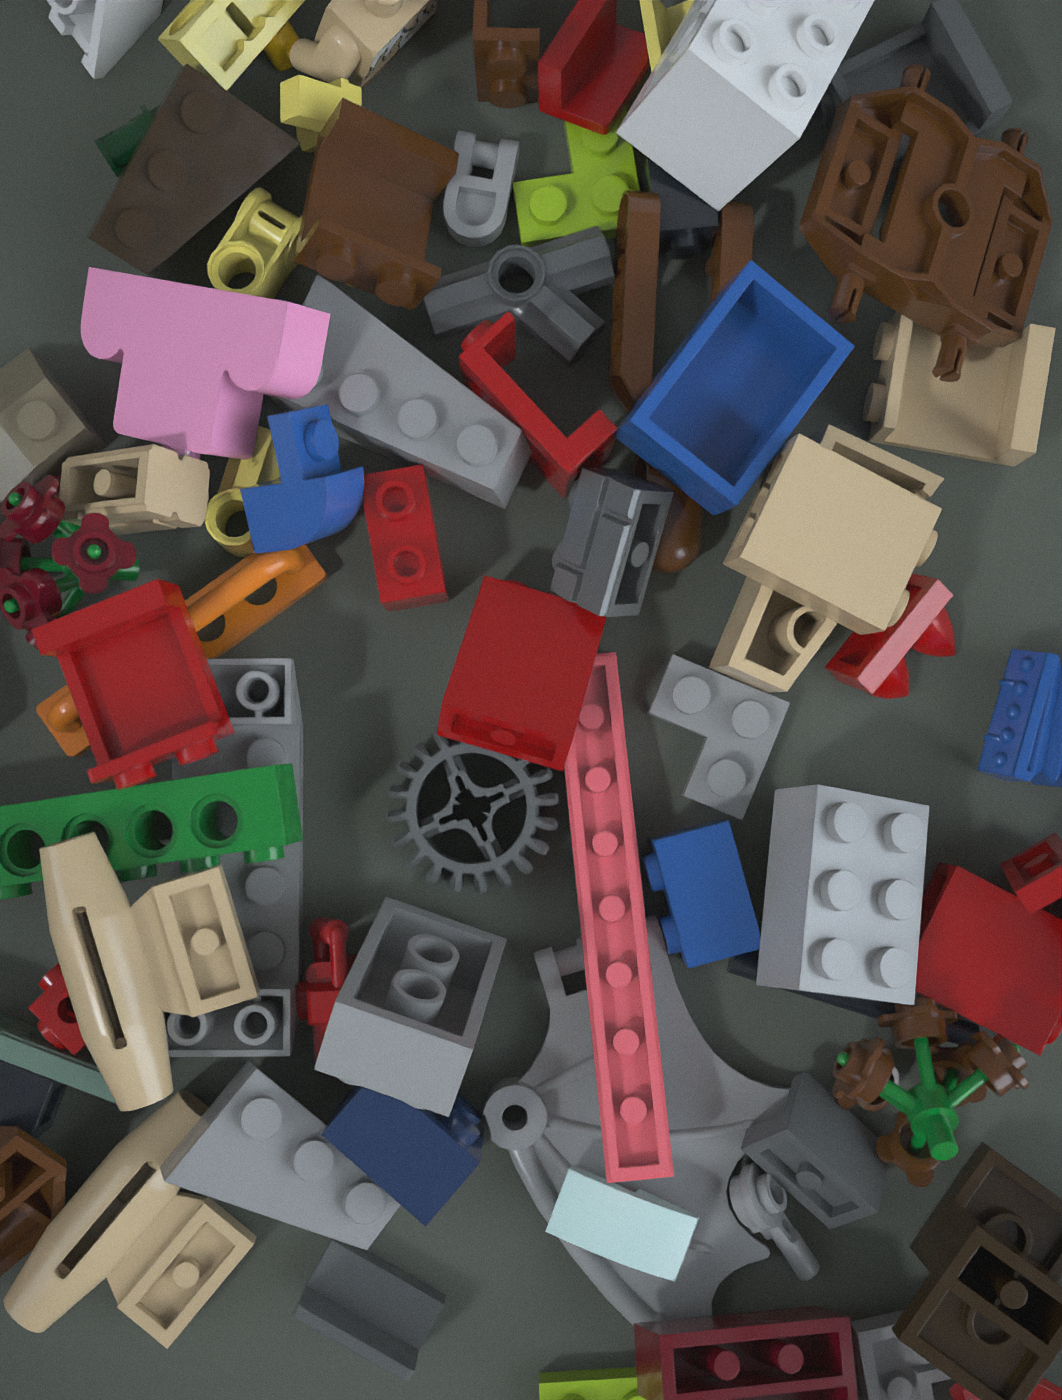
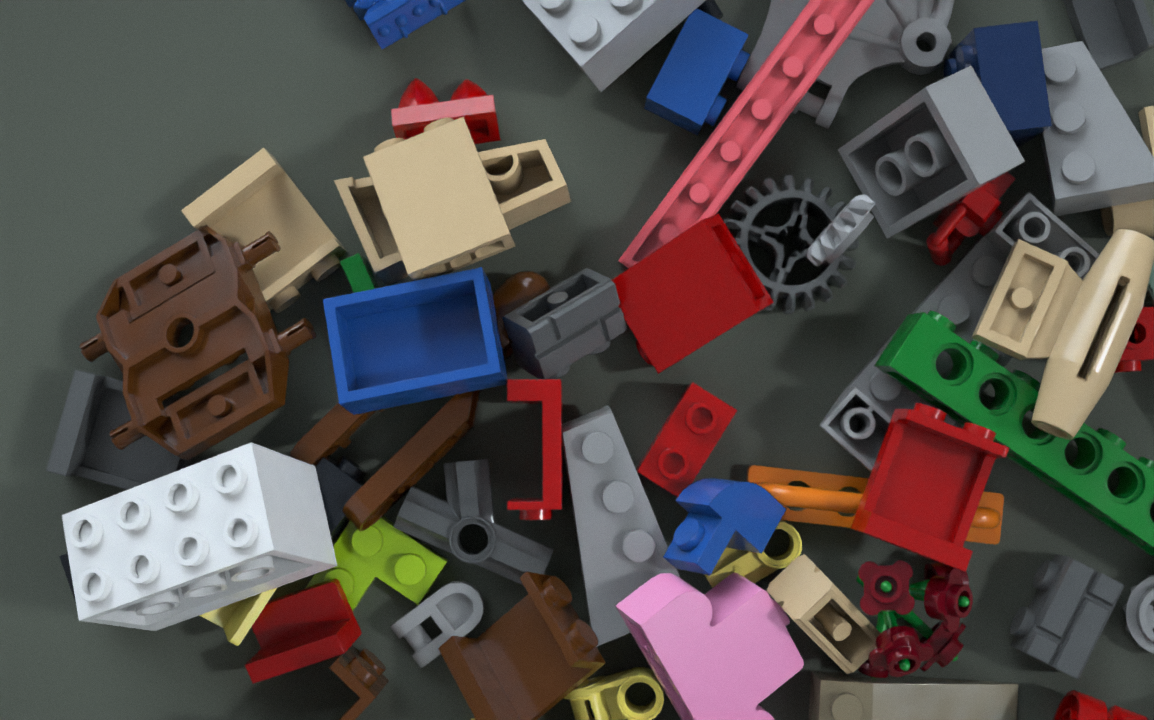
camera: 135 degrees left, 0 degrees up
(431, 852) = (842, 231): none -> light grey gear
(736, 728) = (586, 156): light grey plate -> none
(832, 411) = (359, 273): none -> green tile

